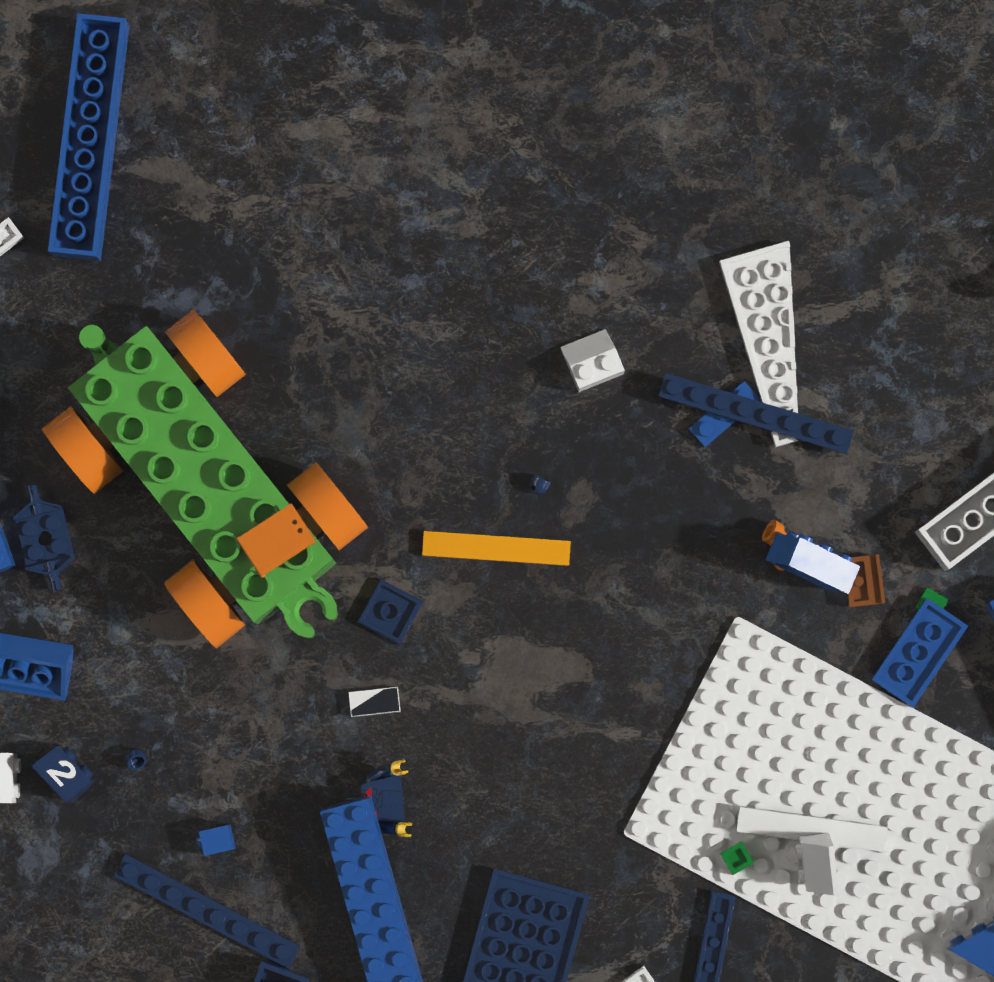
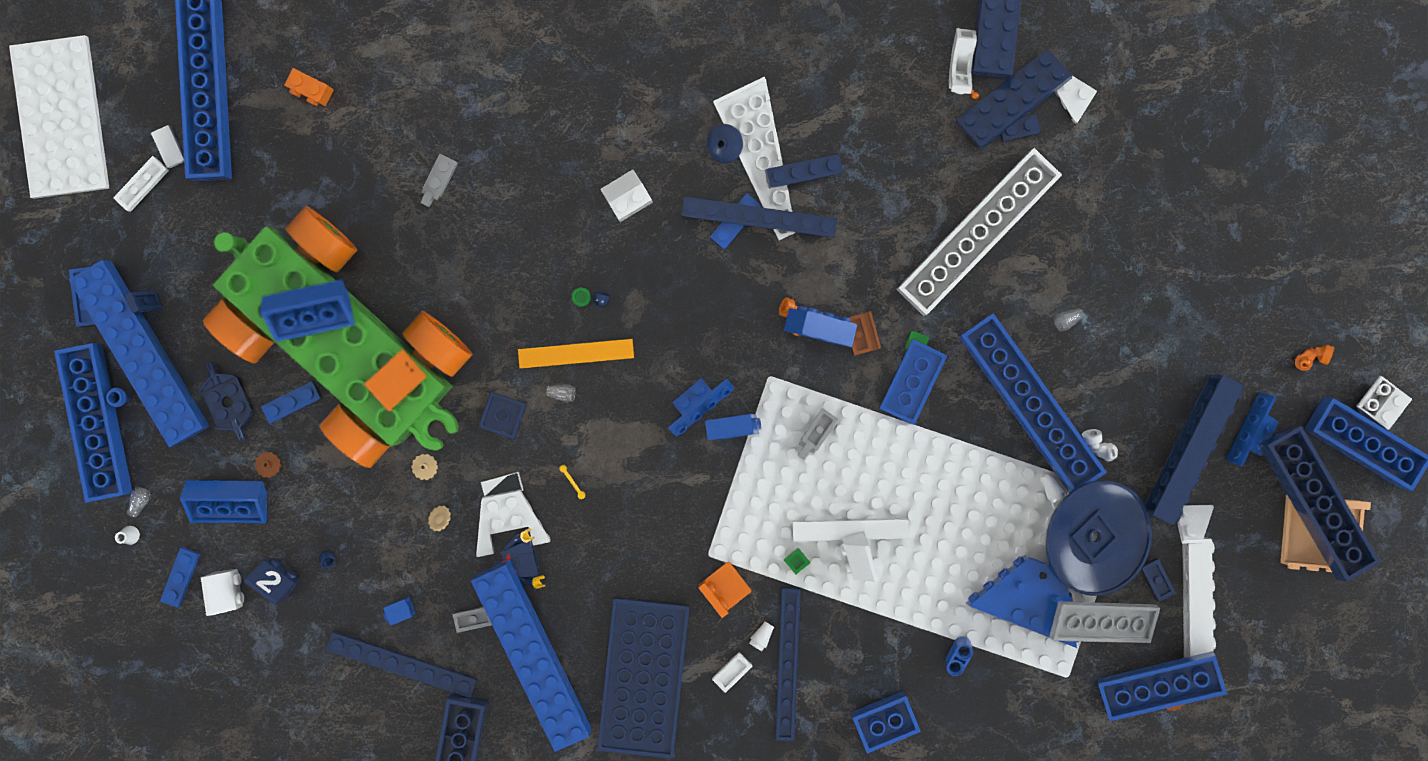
camera: 10 degrees left, 5 degrees up
(29, 209) = (168, 146): none -> white tile
(80, 626) = (267, 464): none -> dark orange piece
(125, 552) = (291, 402): none -> blue plate
(184, 436) = (307, 310): none -> blue slope
(217, 163) = (309, 87): none -> orange brick
(279, 661) = (424, 467): none -> tan piece
(288, 729) = (439, 518): none -> tan piece
(309, 866) = (471, 619): none -> light grey hinge
(358, 302) = (438, 179): none -> light grey hinge
(373, 736) = (506, 513): none -> white wing
(470, 594) = (561, 392): none -> clear cone
(473, 729) = (581, 495): none -> yellow hinge
(514, 478) = (581, 297): none -> green tile
(639, 879) = (724, 588): none -> orange bracket
(641, 634) = (697, 402): none -> blue bracket
(675, 951) = (761, 636): none -> white cone
(682, 672) = (733, 427): none -> blue window
(736, 315) = (732, 143): none -> dark blue dish
(787, 697) = (817, 433): none -> light grey hinge
(820, 365) = (803, 171): none -> dark blue plate

